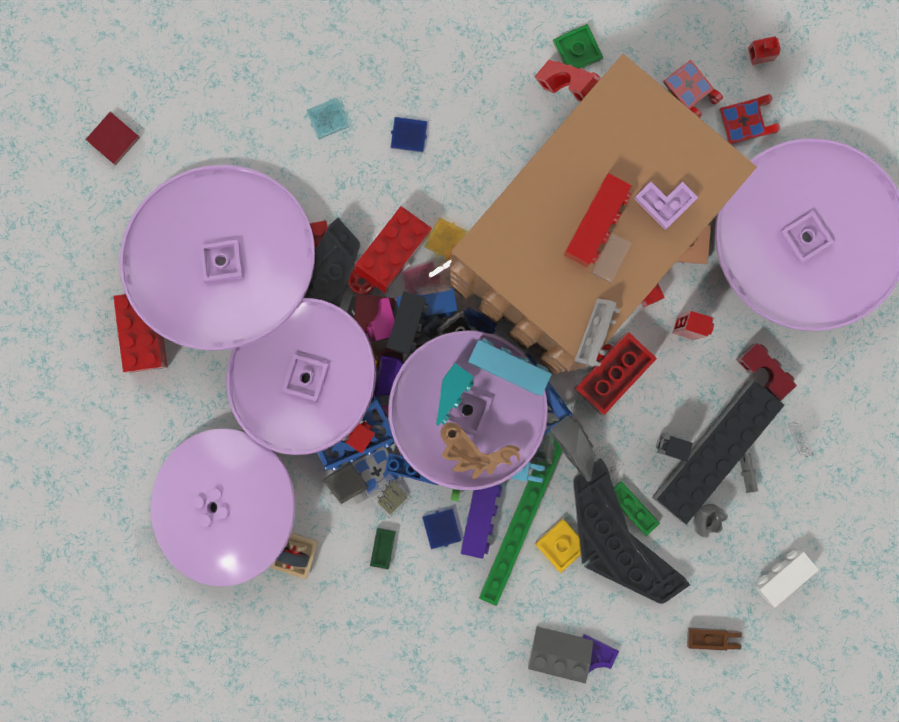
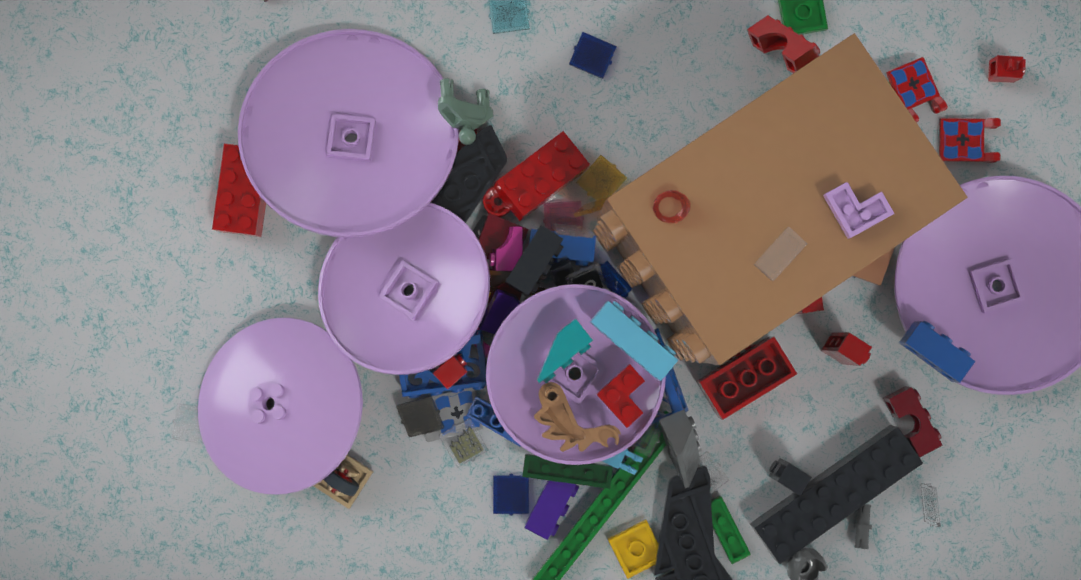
camera: 15 degrees right, 0 degrees up
(311, 214) = (464, 114): none -> sand green connector
(382, 548) = (441, 498): dark green tile -> none
(496, 494) = (586, 474): none -> dark green plate
(507, 417) = (617, 392): none -> red plate
(510, 232) = (686, 205): none -> clear red piece
(596, 332) = (741, 331): light grey plate -> none
(597, 220) = (777, 208): red brick -> none
(770, 306) = (937, 351): none -> blue brick

